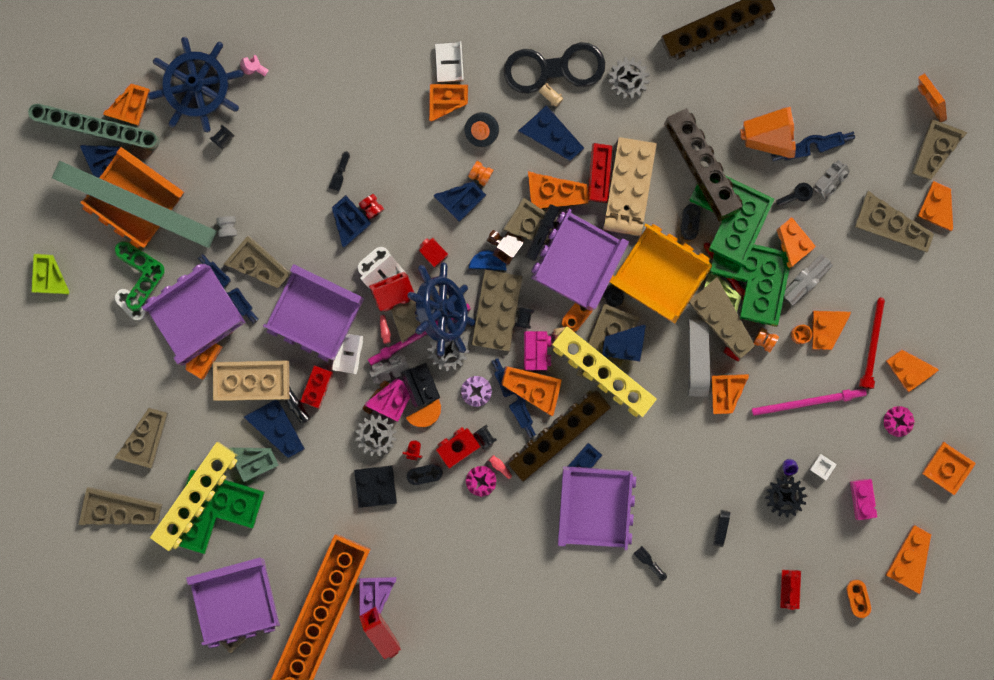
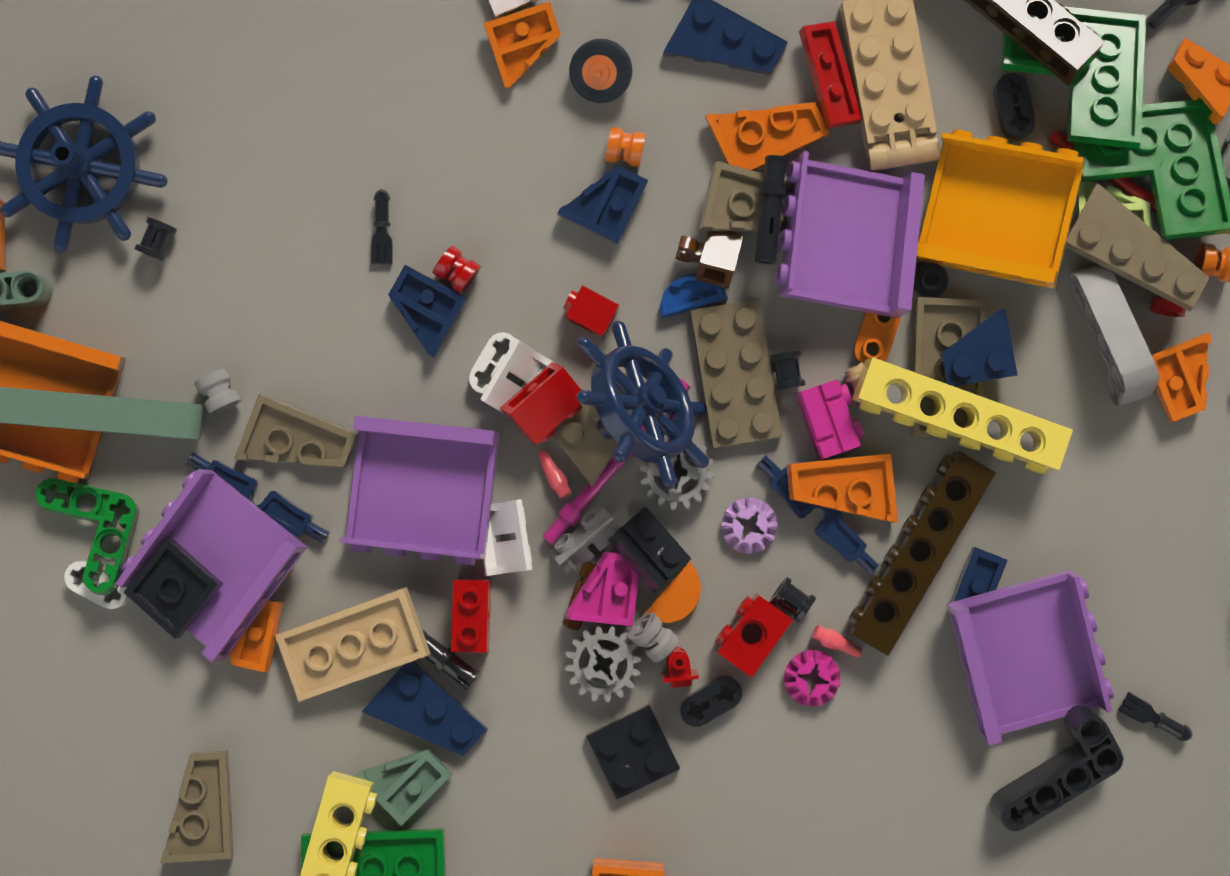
camera: 25 degrees left, 0 degrees up
(169, 319) = (173, 588): none -> black plate
(253, 66) = (167, 100): bright pink piece -> none
(406, 430) = (653, 637): none -> light grey wheel
(587, 571) = (1054, 773): none -> black beam

